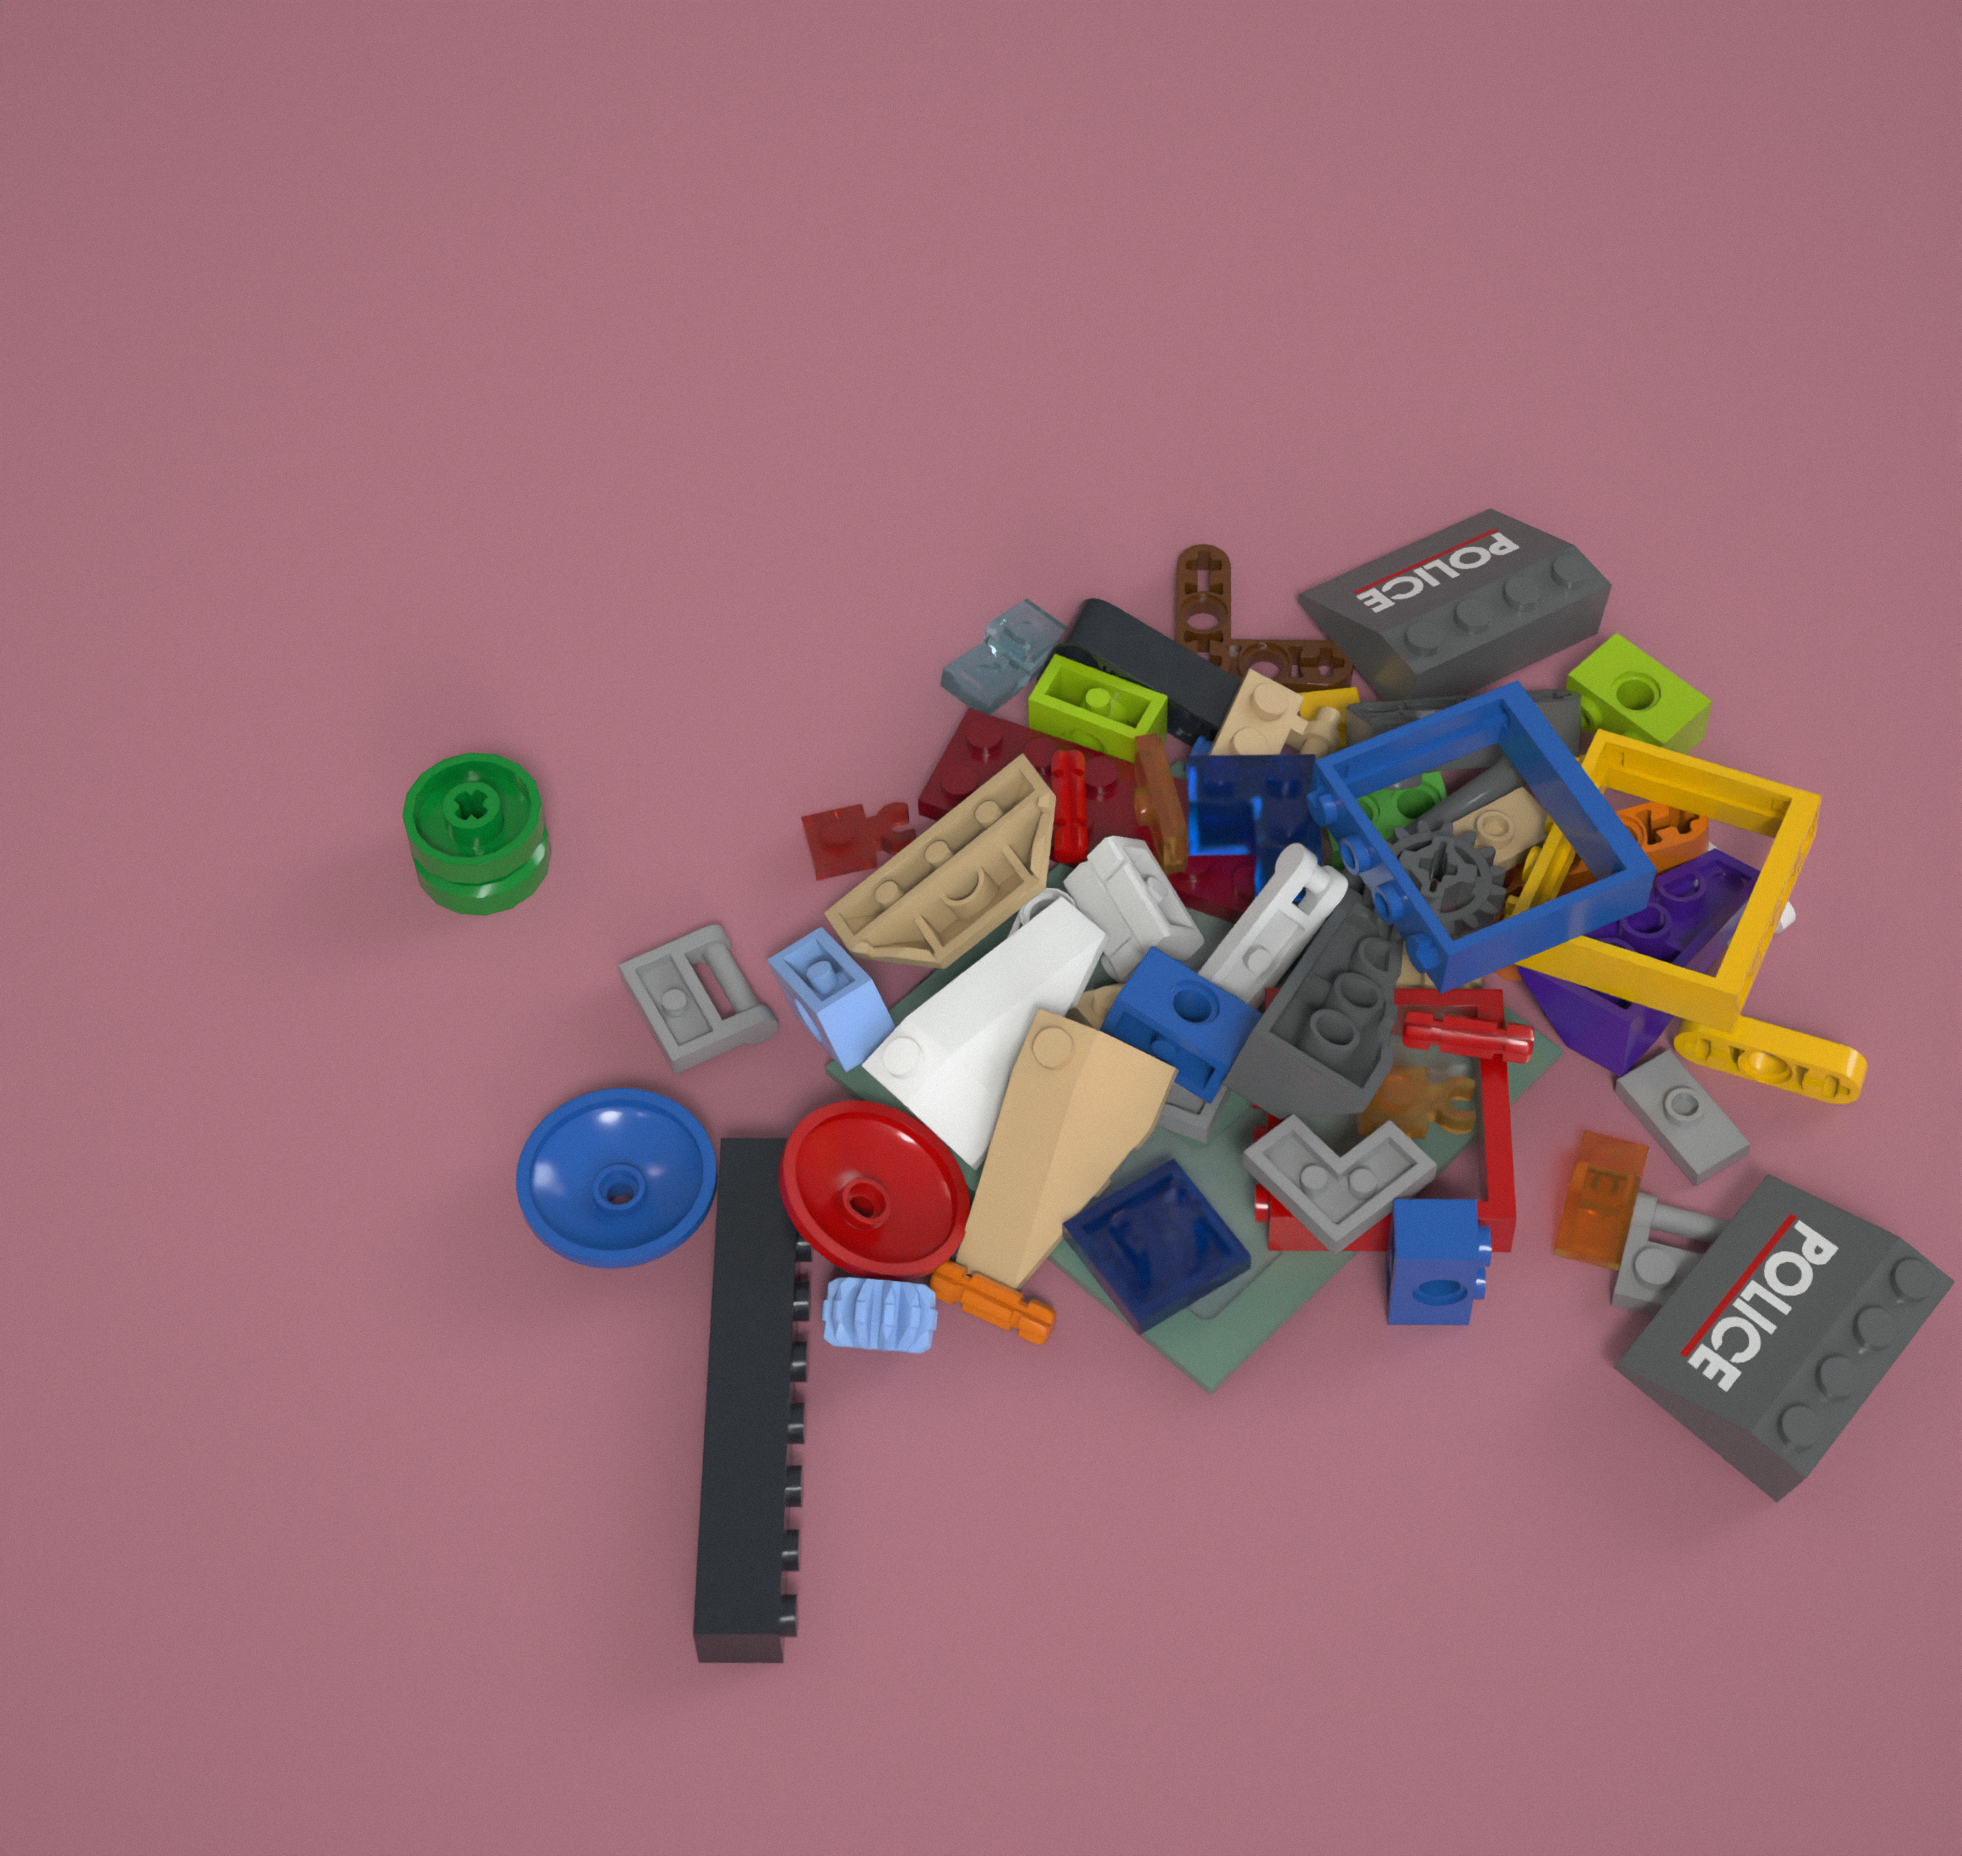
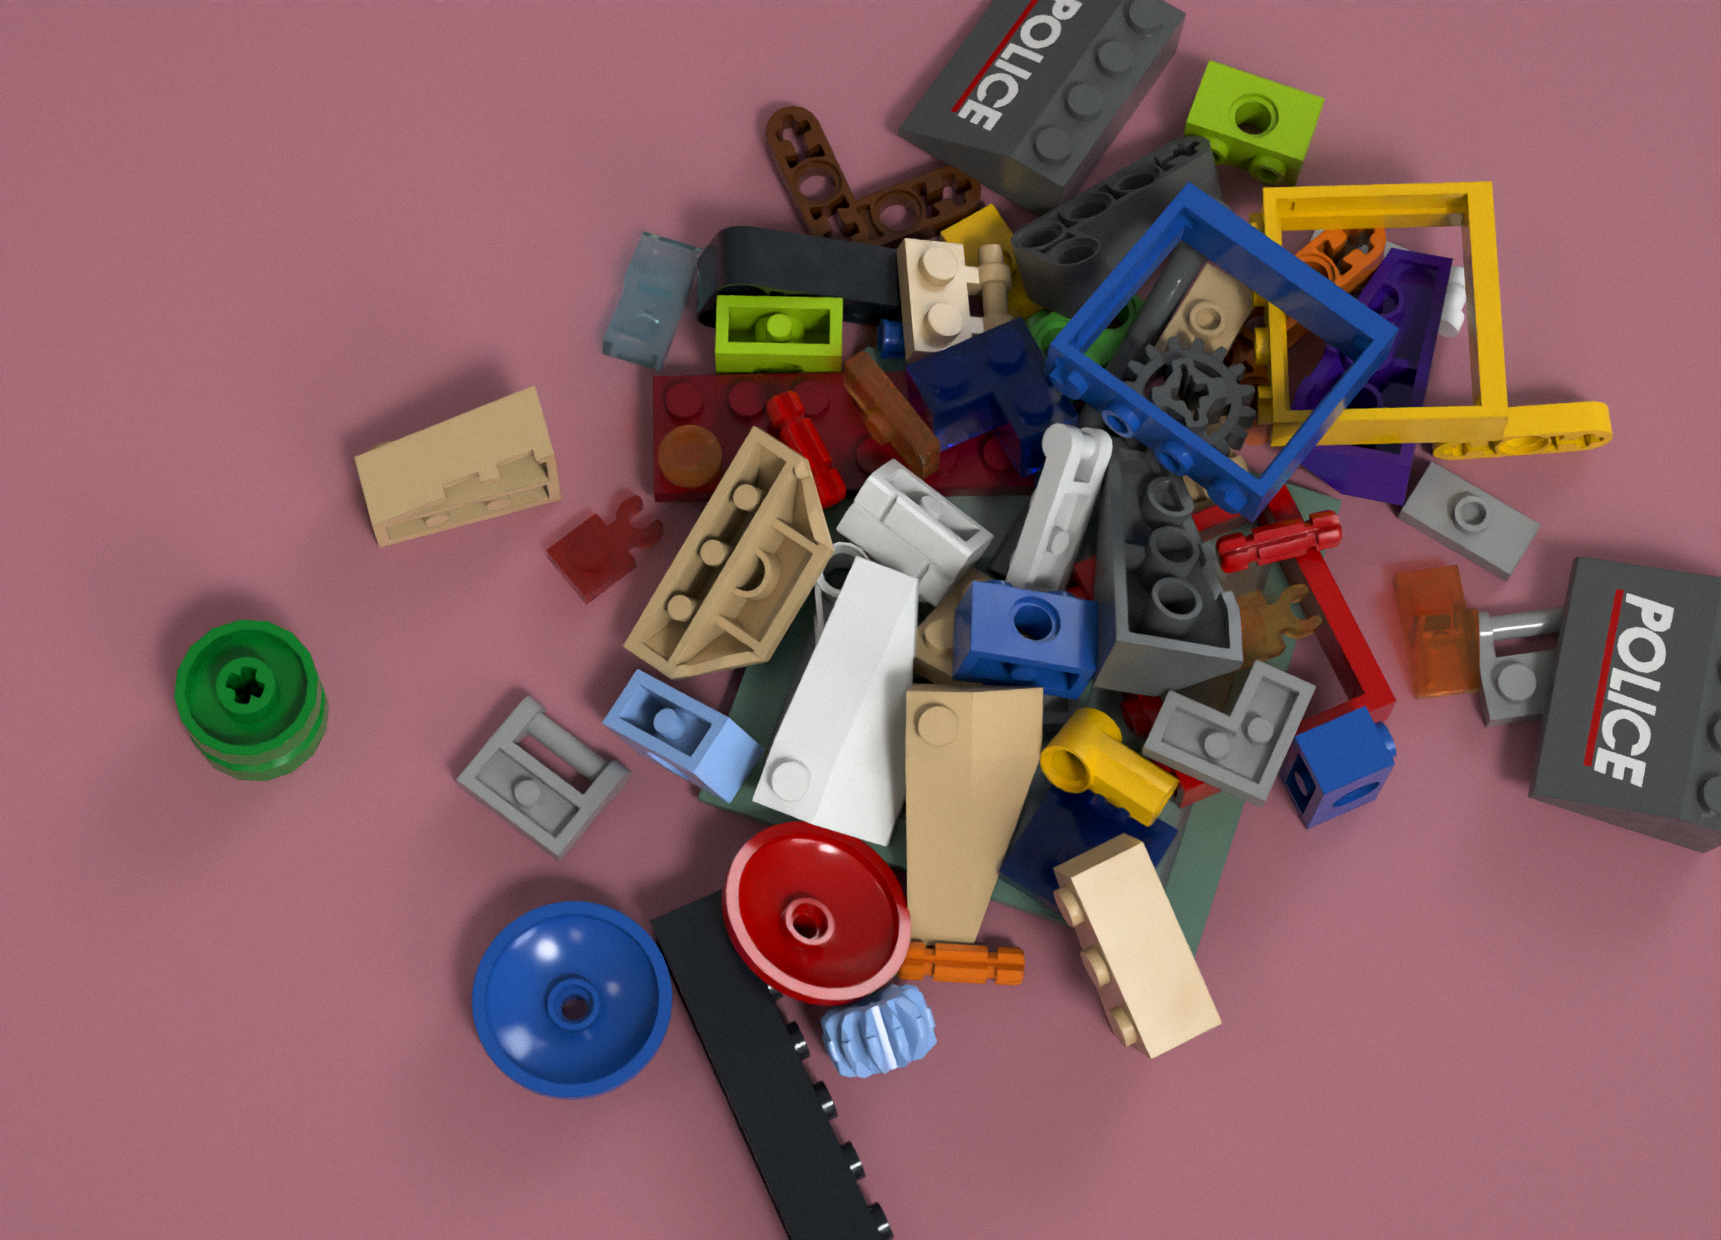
camera: 30 degrees left, 15 degrees up
(760, 721) = (461, 470): none -> tan wedge
(960, 771) = (689, 456): none -> clear orange plate
(1144, 1317) = (1134, 947): none -> tan wedge
(1201, 1152) = (1092, 757): none -> yellow piece

